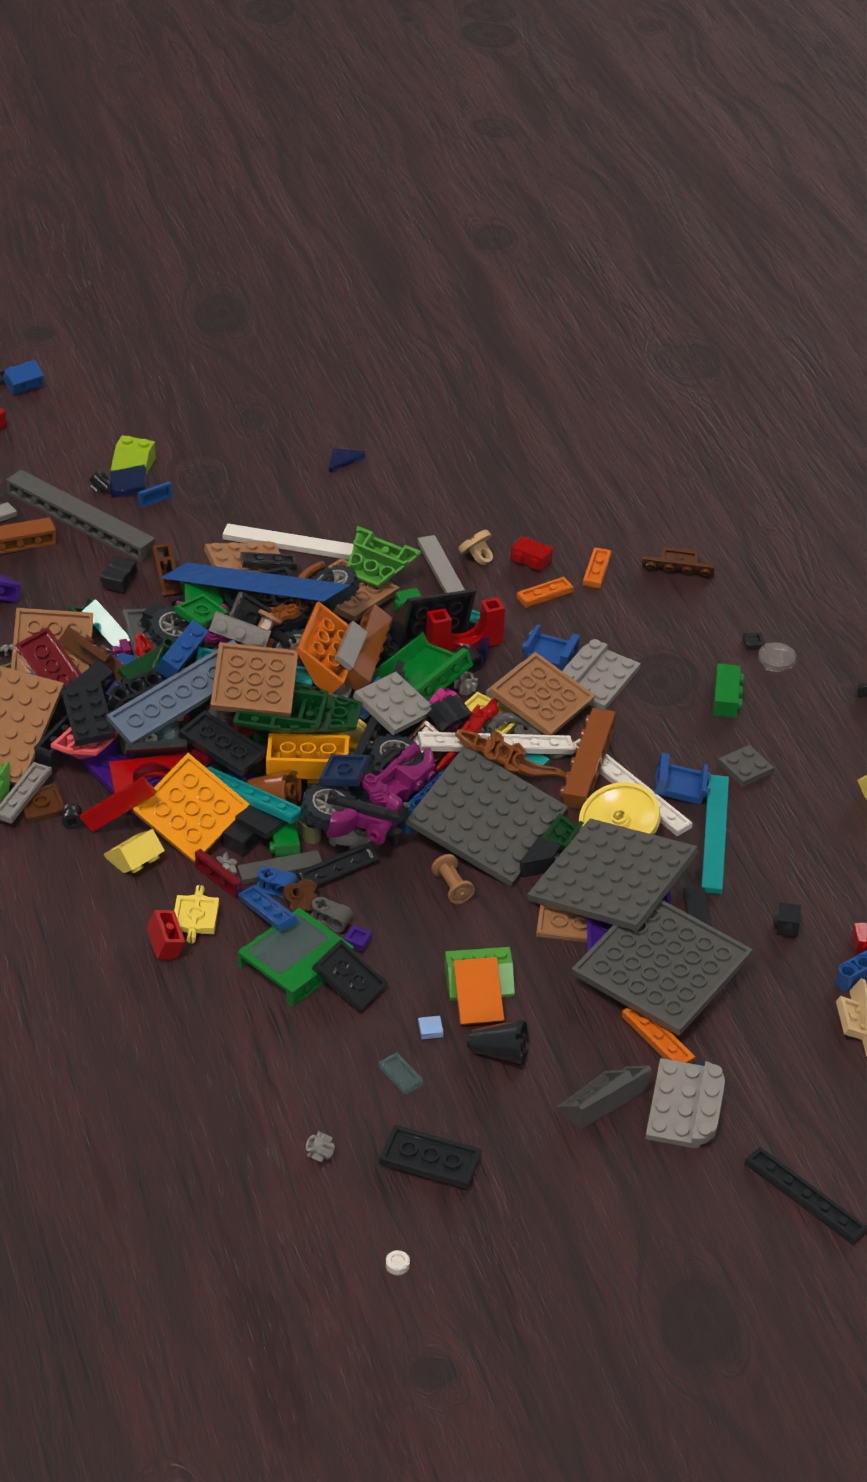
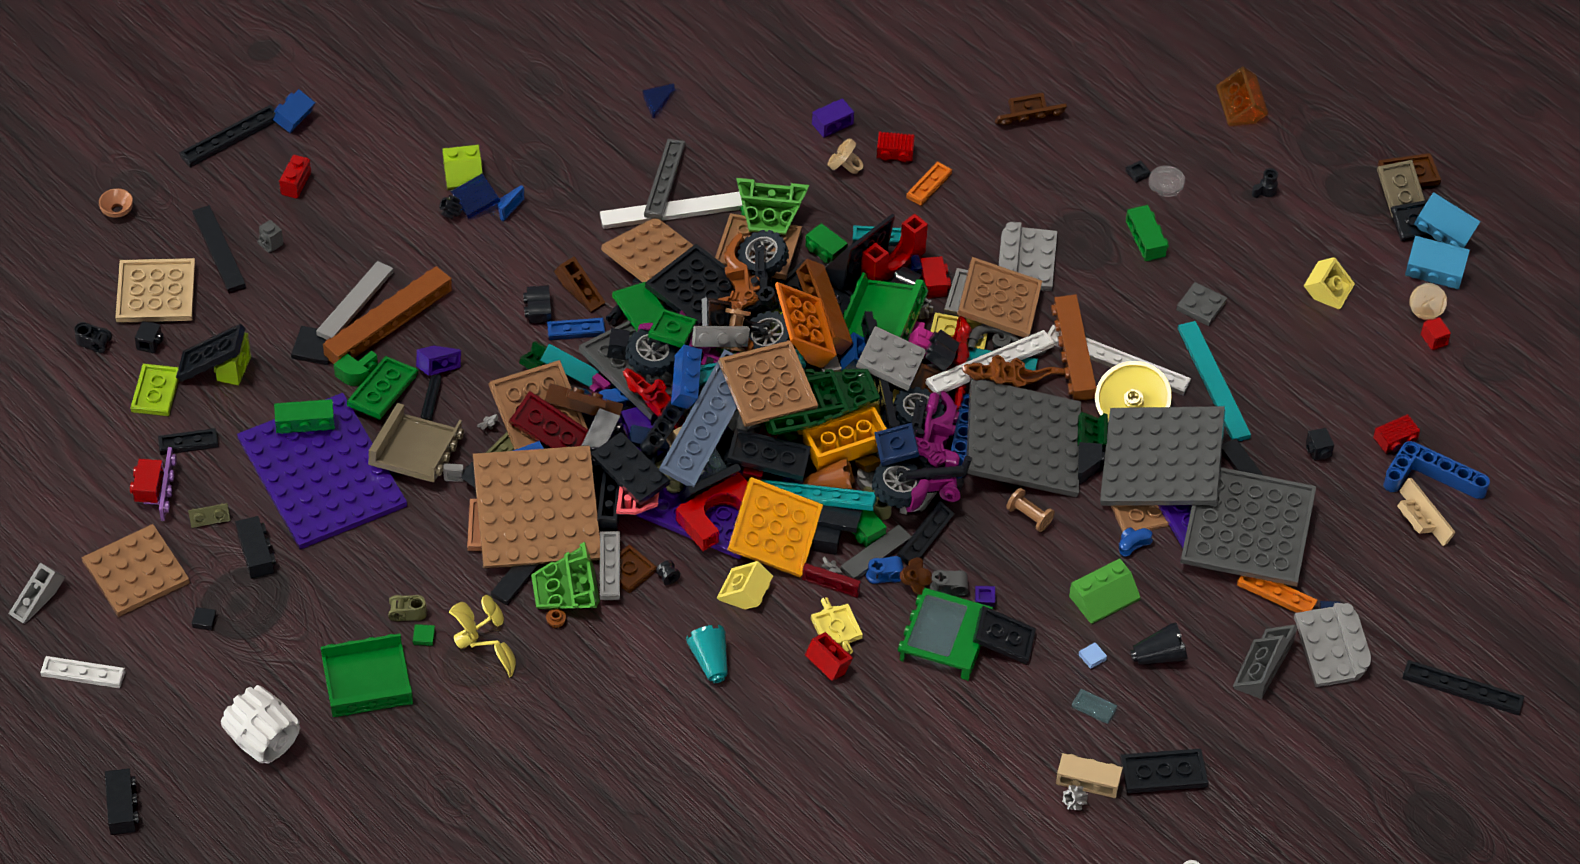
camera: 25 degrees left, 10 degrees up
(58, 890) = (709, 649): none -> teal cone
(80, 515) = (457, 251): dark grey brick -> none
(118, 804) = (712, 548): red tile -> none
(133, 601) = (575, 328): none -> blue tile
(145, 662) = (655, 397): dark green piece -> none
(255, 581) = (689, 275): blue sticker -> none
(267, 560) = (672, 242): black tile -> none
(268, 908) = (897, 597): blue tile -> none
(302, 516) = (664, 179): none -> dark grey tile
(349, 1132) = (1089, 773): none -> tan brick
(350, 645) = (822, 314): light grey tile -> none
(439, 564) = (826, 192): light grey tile -> none
(478, 991) = (1116, 608): orange tile -> none
(489, 515) = (832, 117): none -> dark purple brick
(495, 662) = (934, 276): none -> red brick
(539, 940) = (1133, 540): none -> blue piece
(553, 649) = (972, 243): blue panel -> none
(597, 567) = (959, 140): orange tile -> none
(680, 781) = (1160, 340): blue panel -> none

